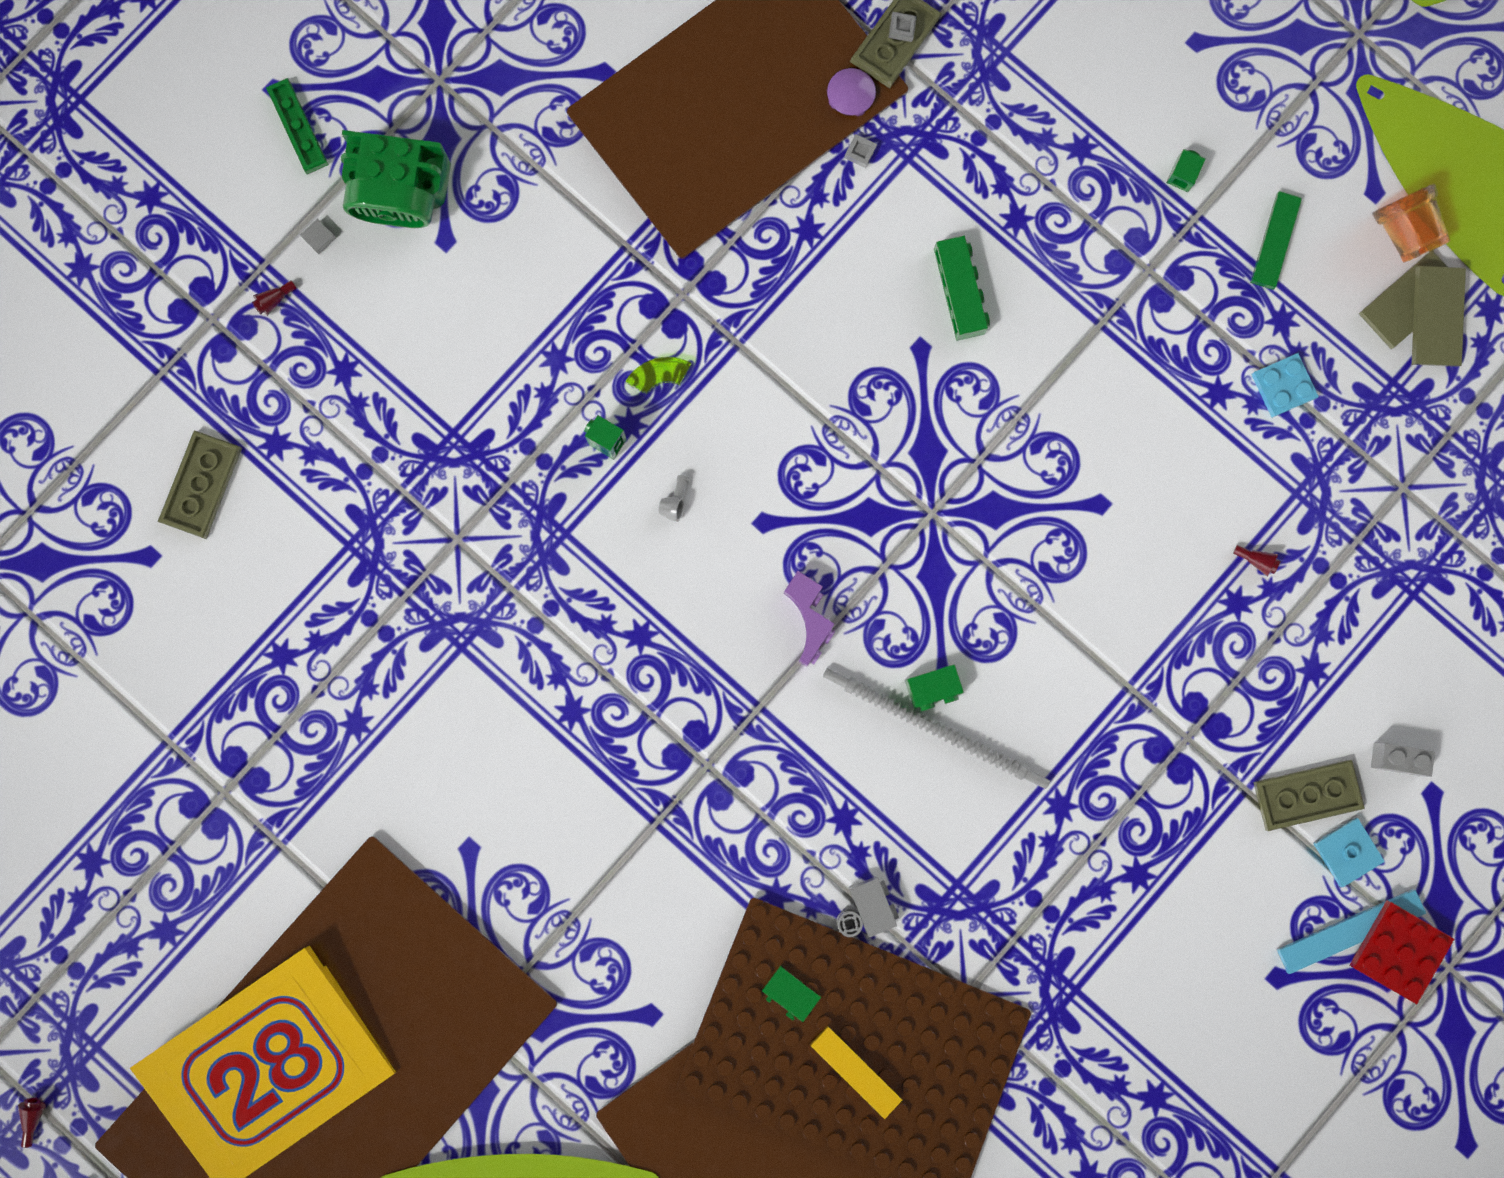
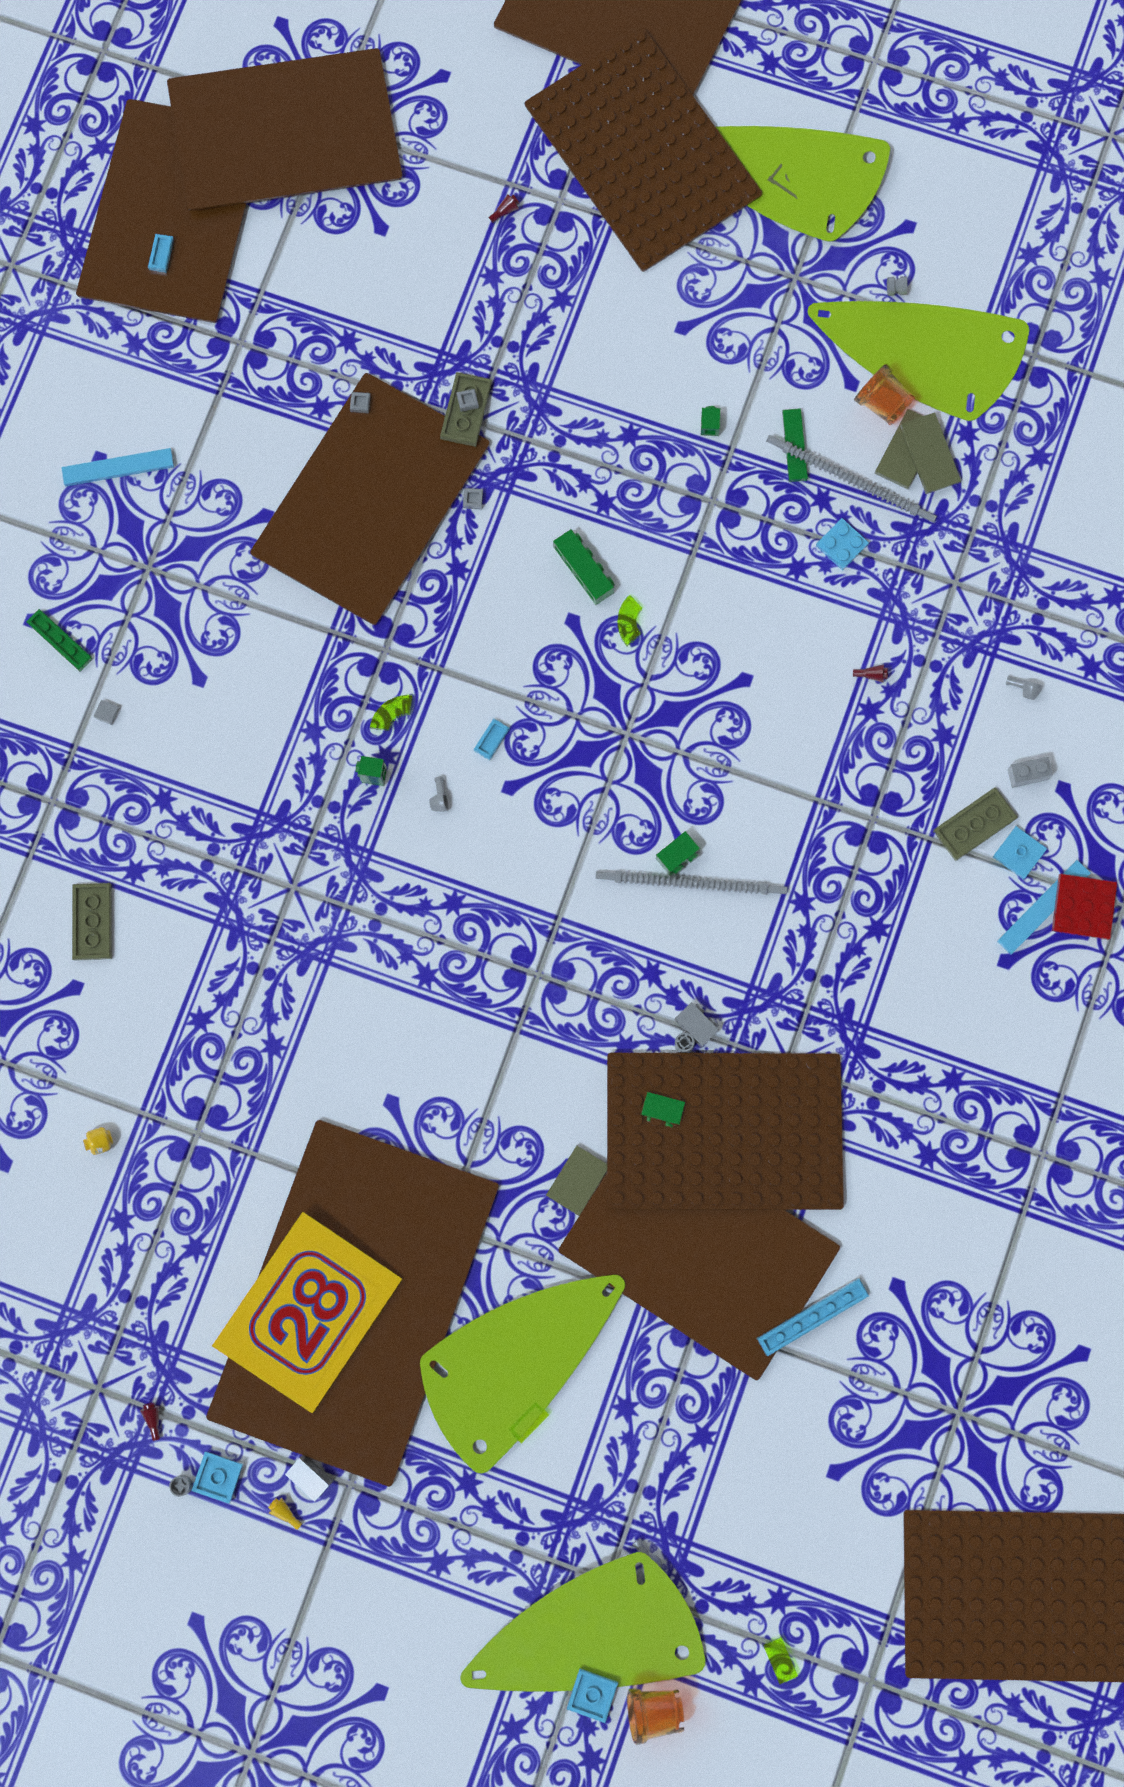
camera: 10 degrees left, 5 degrees down
(99, 756) = (98, 1141): none -> yellow head
(267, 301) = (89, 771): dark red cone -> none
(393, 179) = (146, 649): green brick -> none
(653, 1037) = (577, 1180): none -> olive tile
(765, 455) = (491, 739): none -> medium azure tile
(805, 593) = (558, 825): medium lavender arch -> none
(851, 92) = (449, 460): medium lavender dish -> none
(856, 1072) = (731, 1143): yellow tile -> none
(987, 375) = (627, 620): none -> clear neon green tile
(1390, 377) = (788, 448): none -> light grey hose
(1442, 656) = (1030, 689): none -> light grey bar
(1480, 93) = (898, 286): none -> light grey wheel

